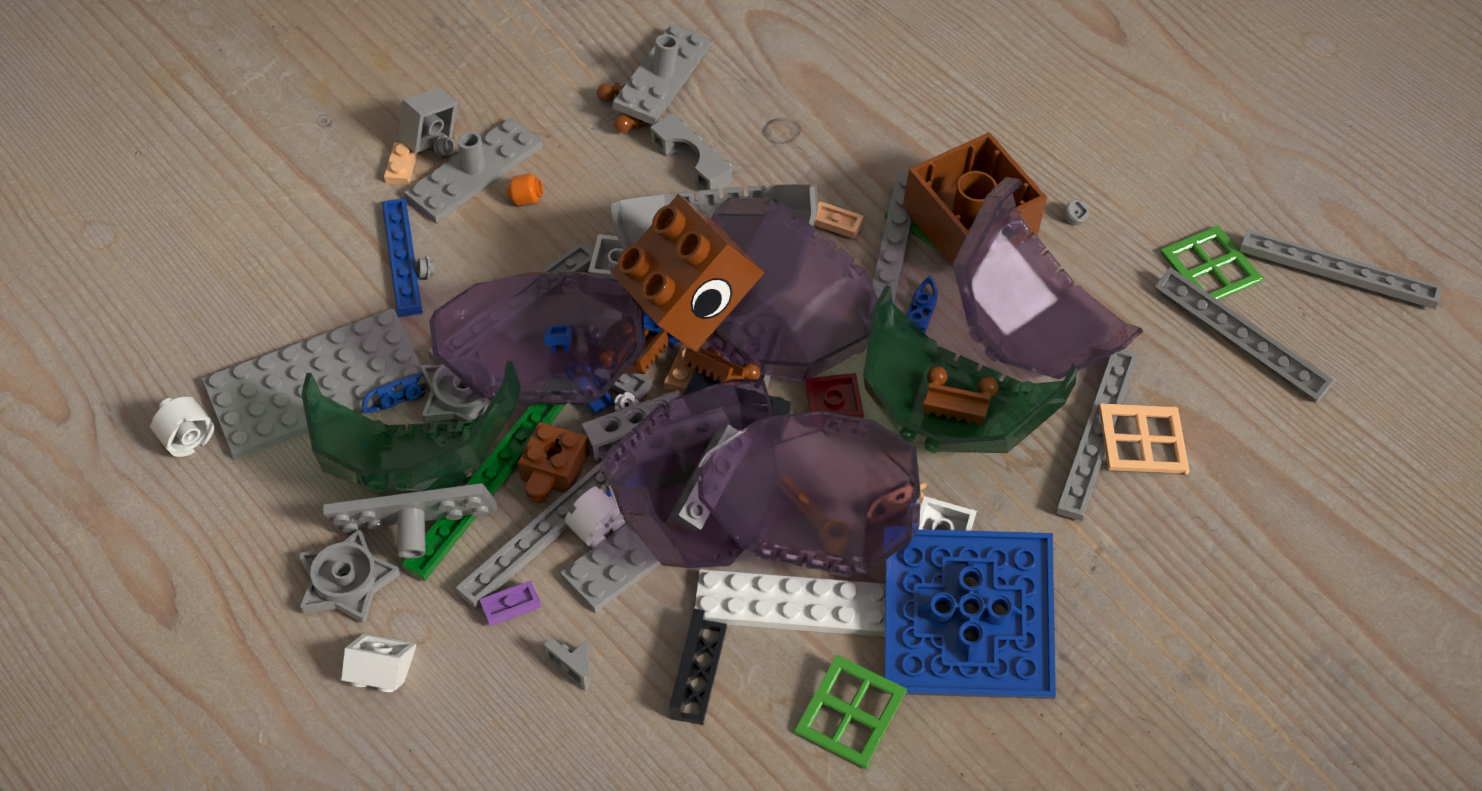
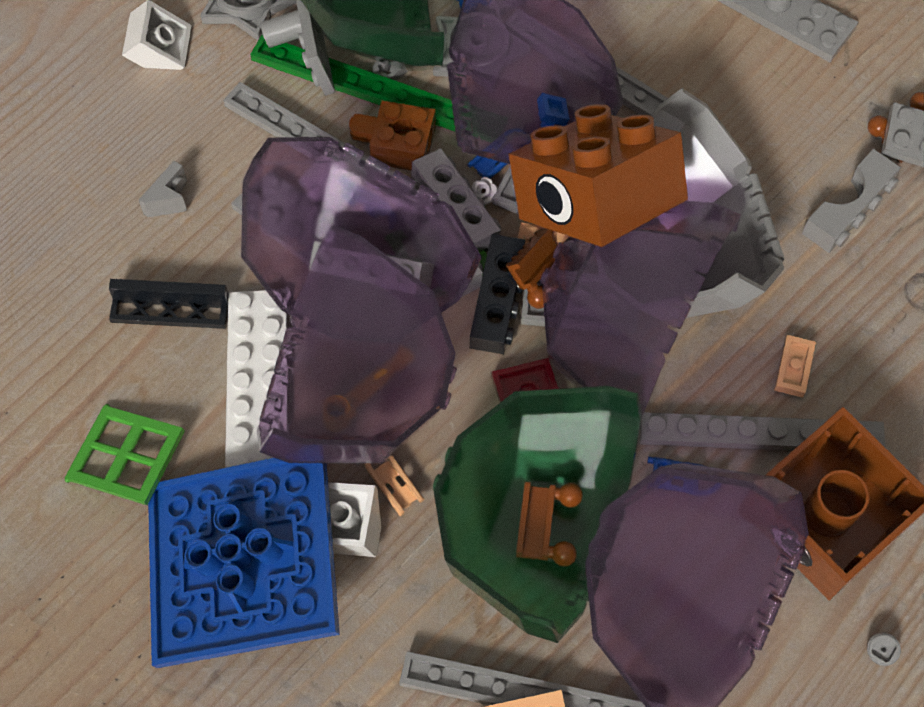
camera: 80 degrees right, 10 degrees up
(510, 603) = (230, 131): medium lavender plate -> none
(524, 189) = (754, 51): orange head -> none

